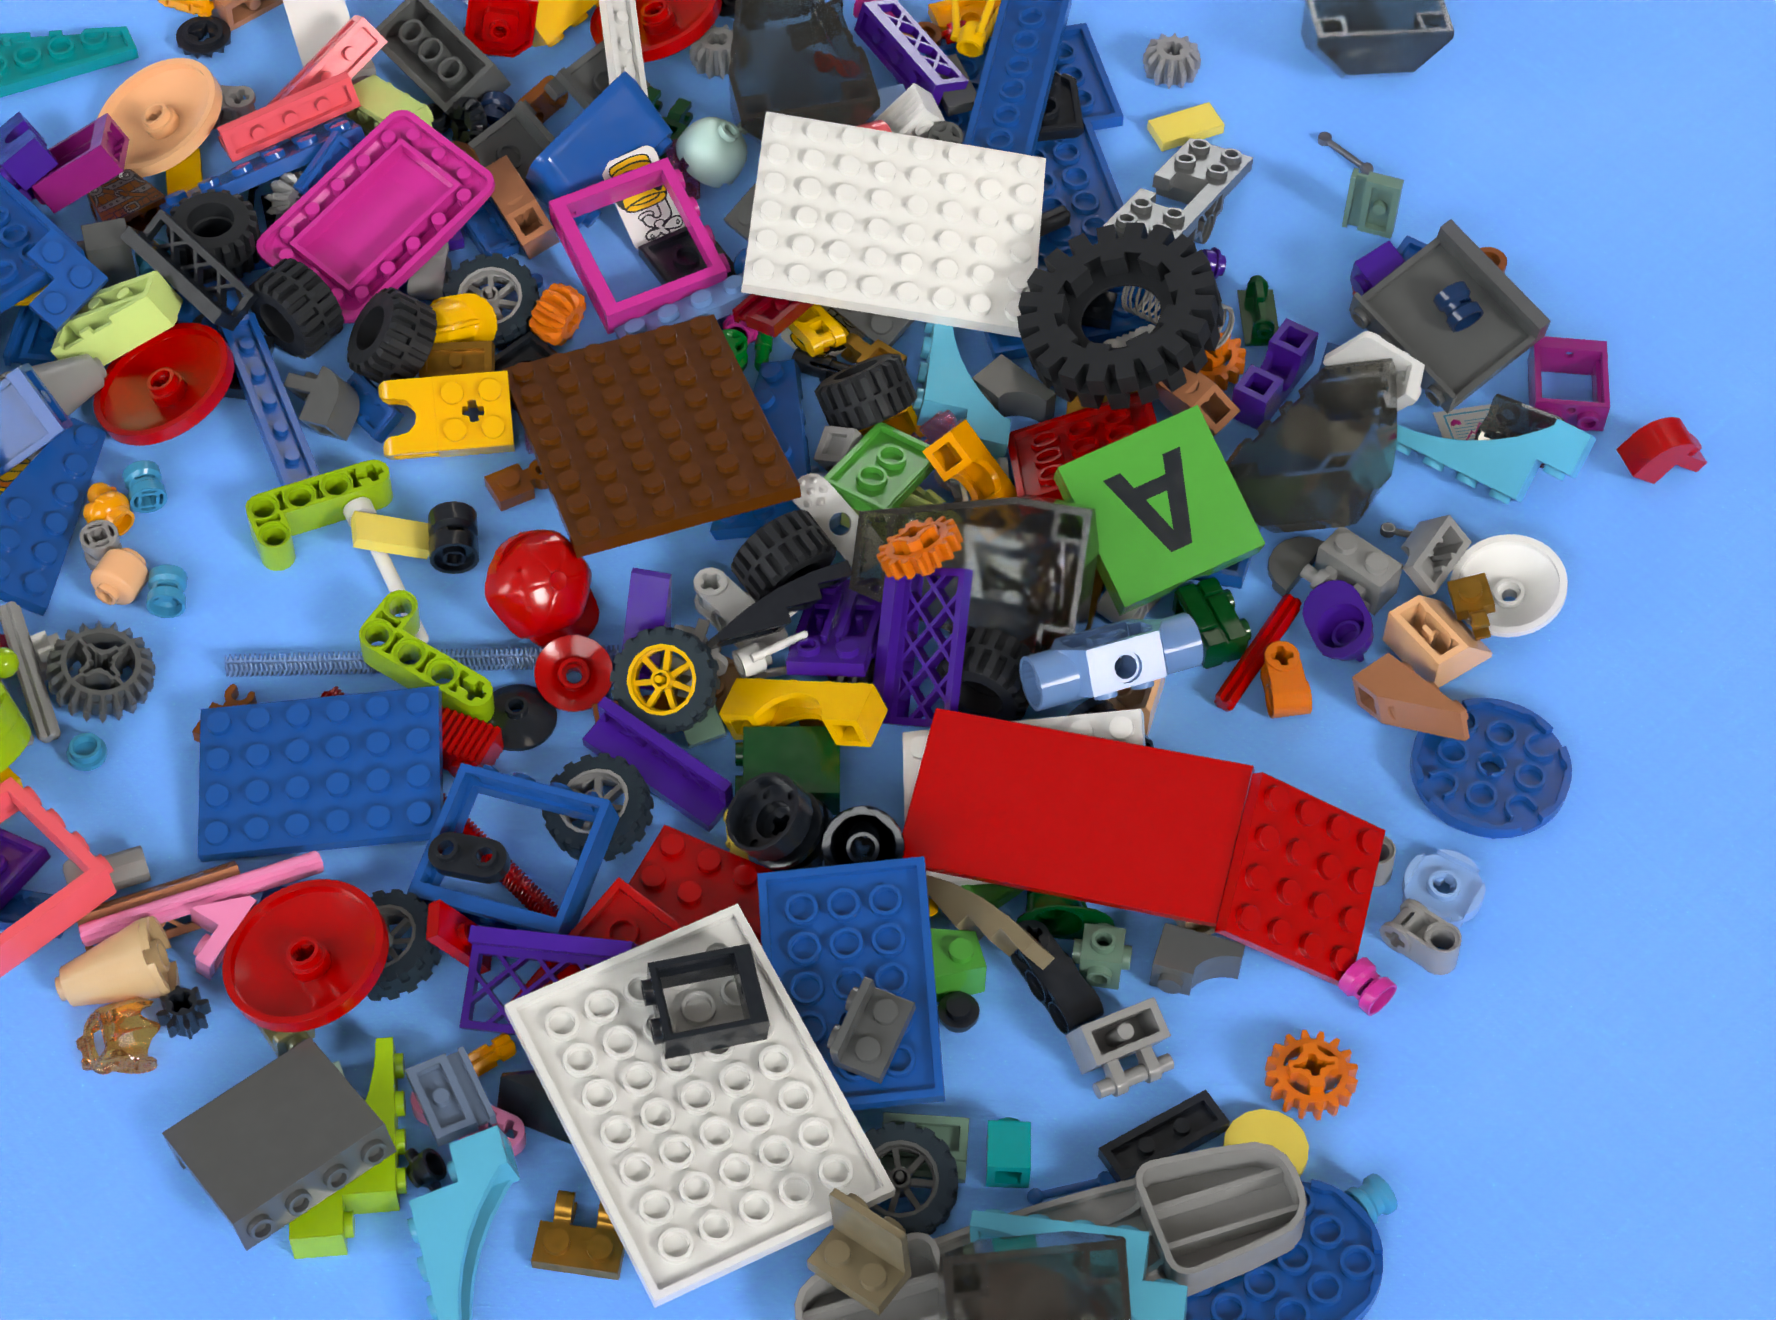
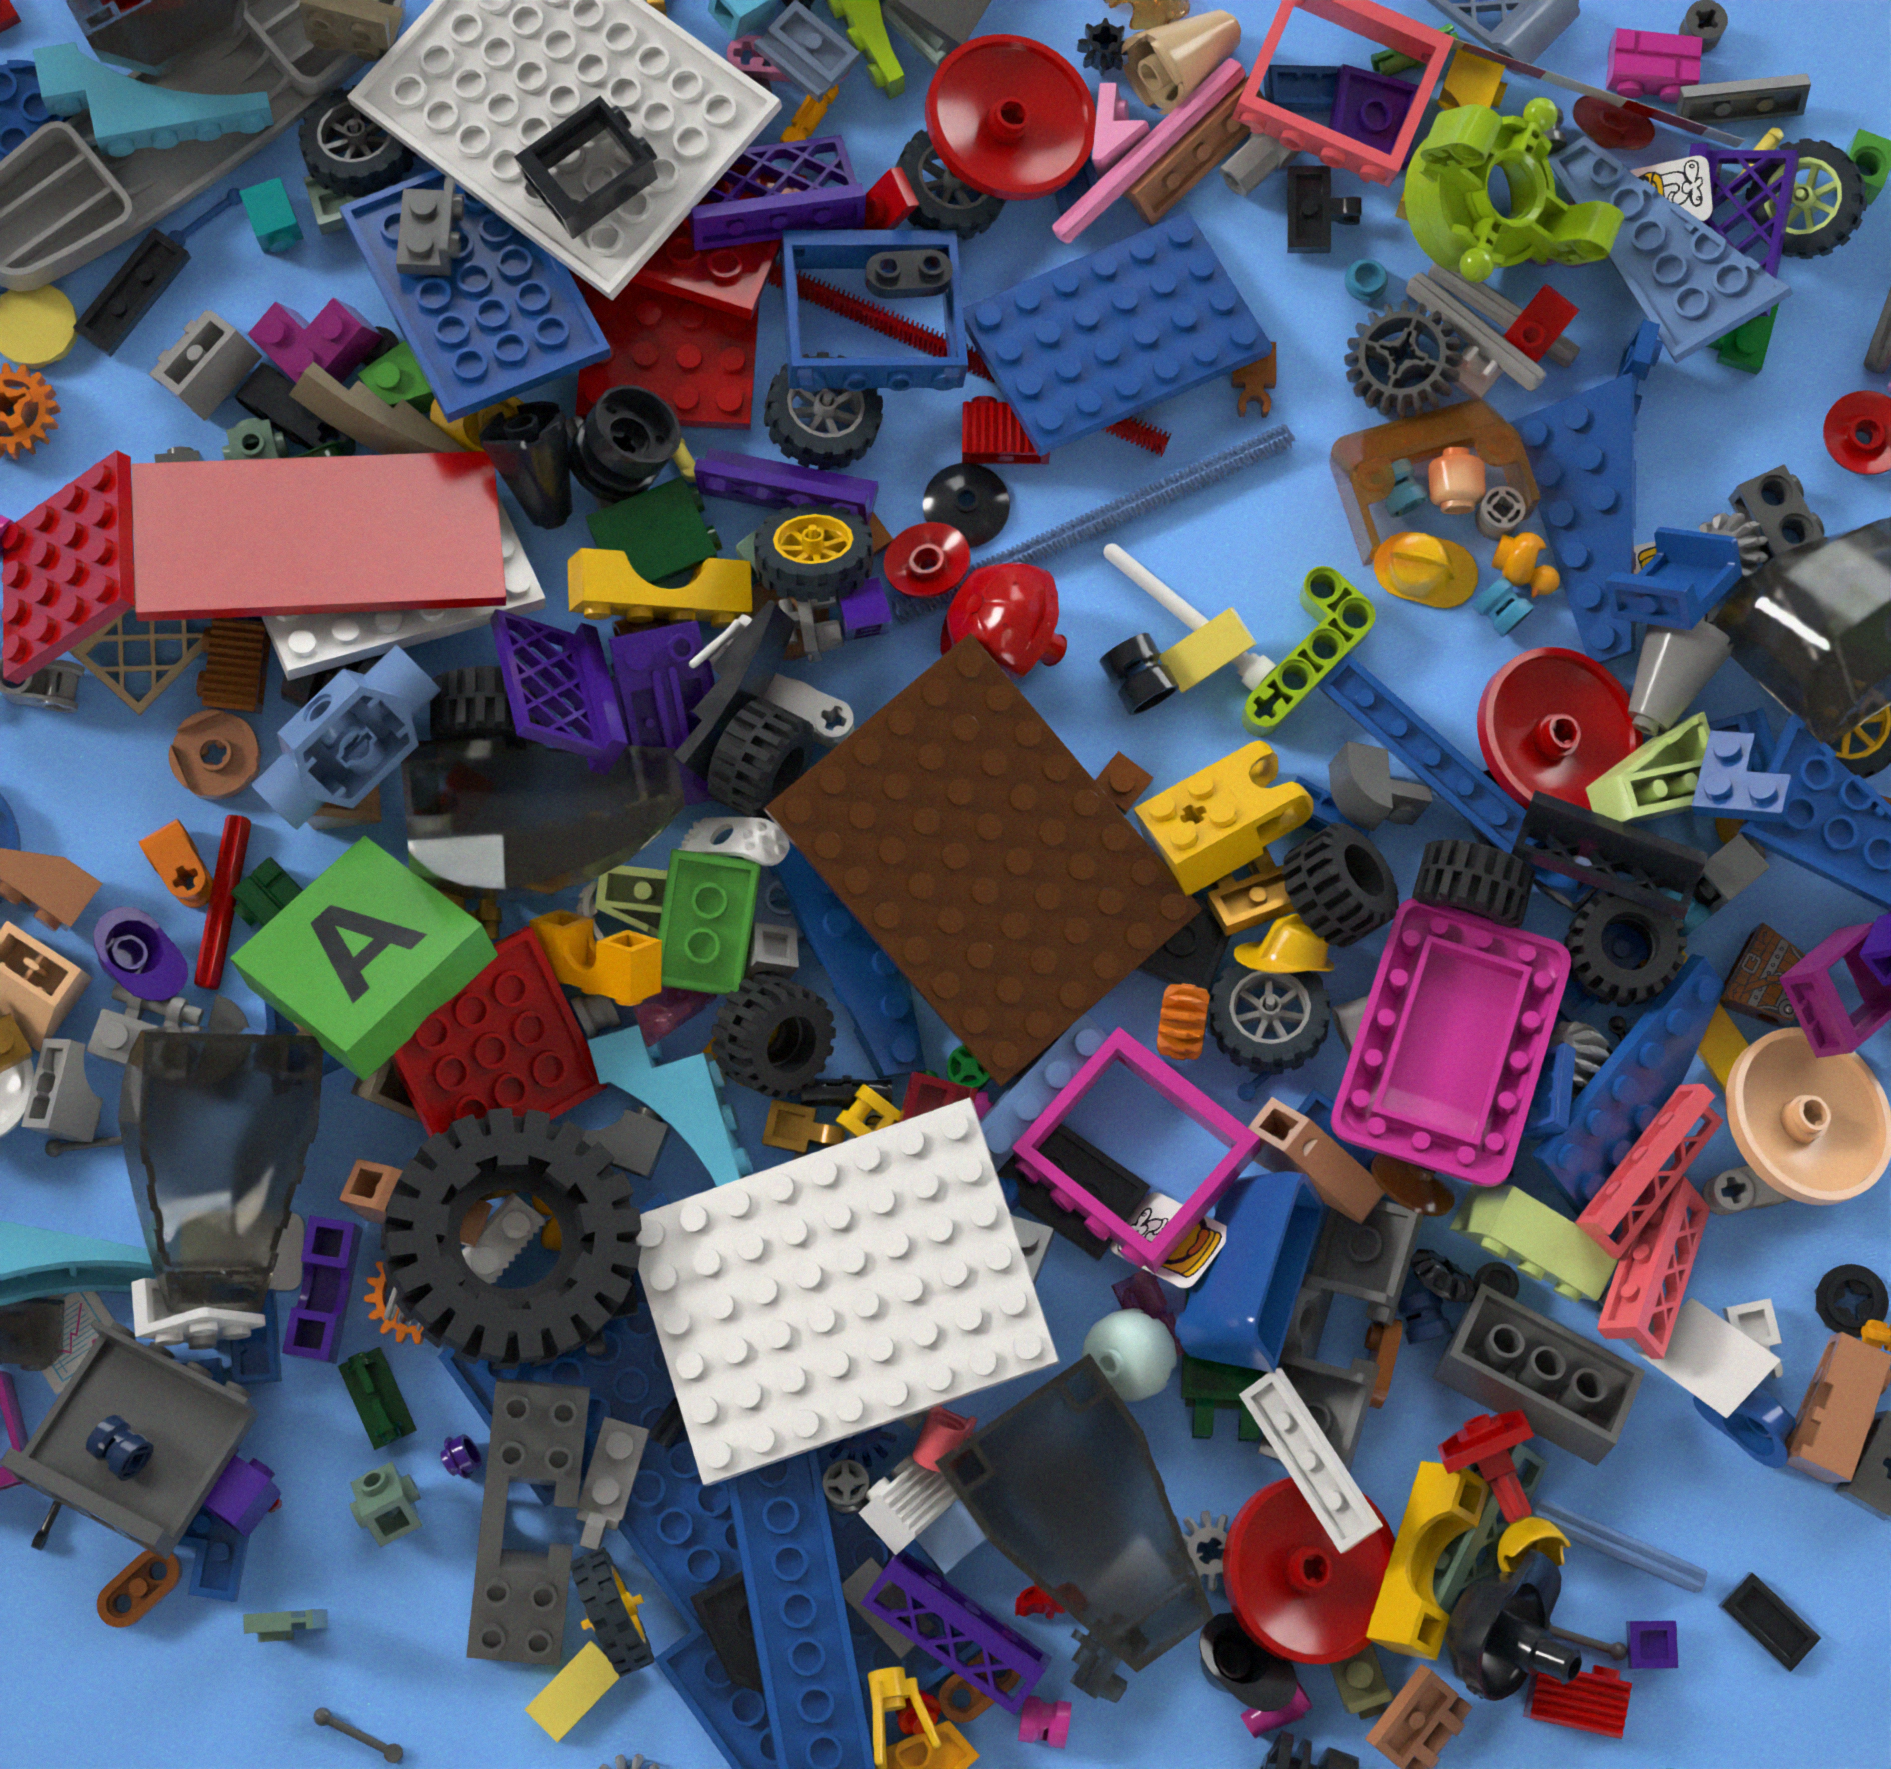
camera: 155 degrees right, 25 degrees up
(97, 814) = (1313, 209): none -> black plate
(167, 612) = (1364, 459): none -> clear orange windscreen
(185, 542) = (1426, 569): none -> yellow piece
(277, 41) = (1757, 1322): none -> white plate
(465, 692) = (1071, 498): lime beam -> none
(920, 548) = (573, 738): orange gear -> none
(1019, 1008) = (333, 340): none -> magenta brick
(1107, 202) = (610, 1479): none -> light grey hinge
(1141, 128) = (612, 1612): none -> black wheel
(1231, 732) = (237, 767): none -> nougat plate
(1269, 236) = (386, 1503): none -> sand green brick

